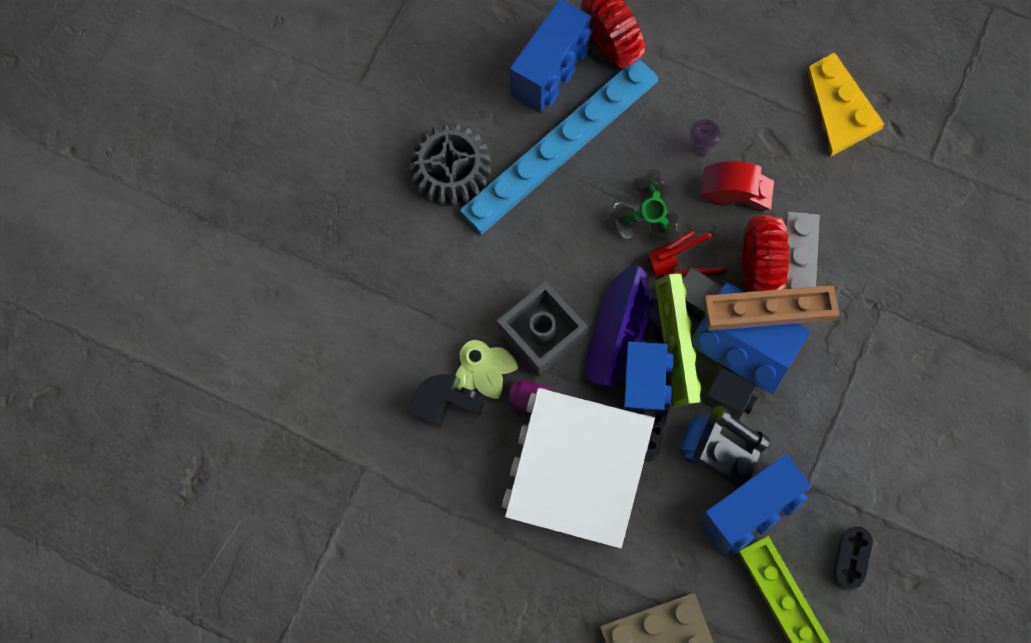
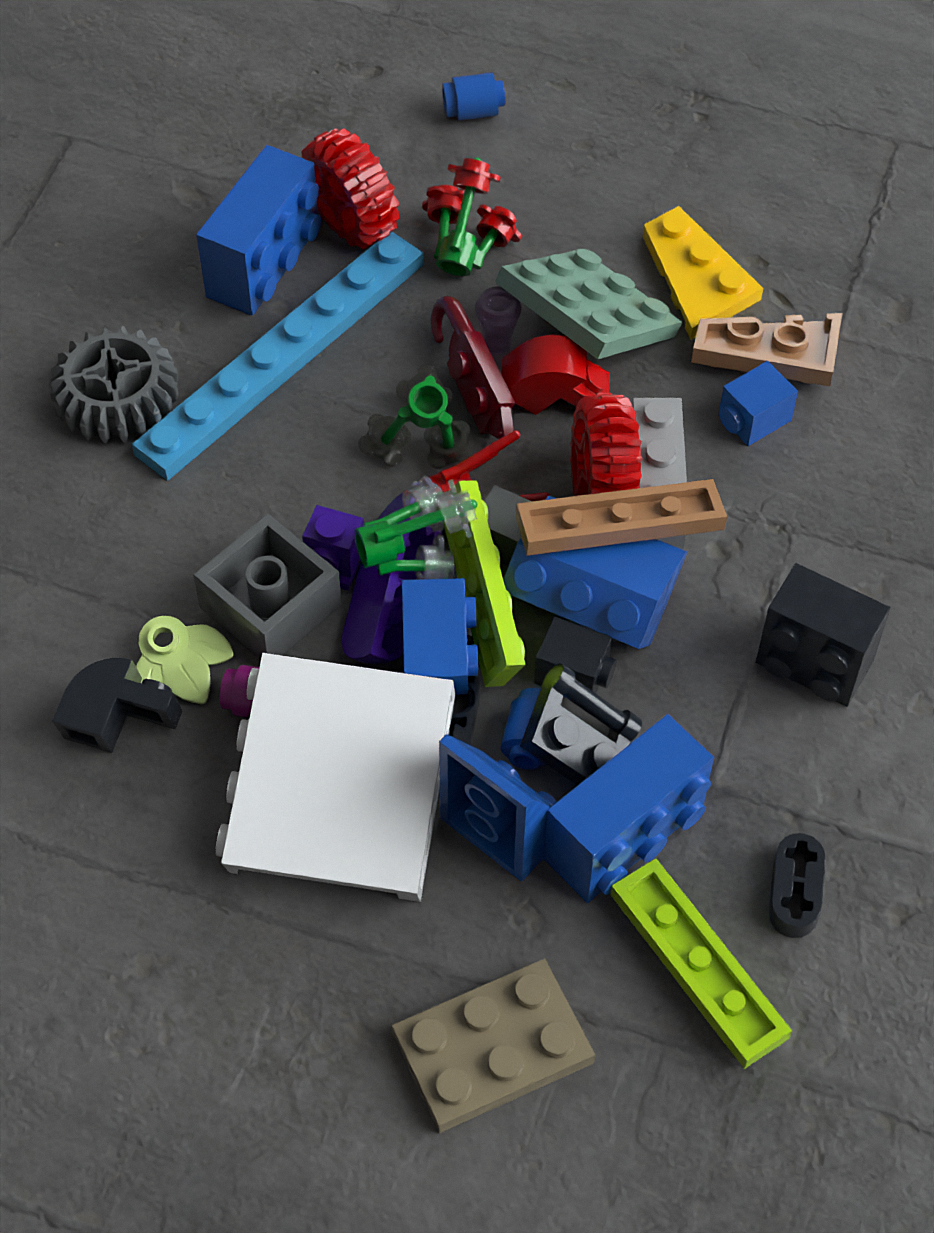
camera: 10 degrees left, 15 degrees down
(586, 298) = (333, 539): none -> dark purple brick
(647, 324) = (425, 505): none -> plant
(675, 494) = (492, 806): none -> blue slope
(685, 175) = (474, 370): none -> dark red plate
(709, 59) = (448, 205): none -> plant
(765, 131) = (589, 302): none -> sand green plate
(869, 215) = (757, 403): none -> blue brick
(890, 397) = (821, 634): none -> black brick
(892, 173) = (794, 347): none -> medium nougat wing

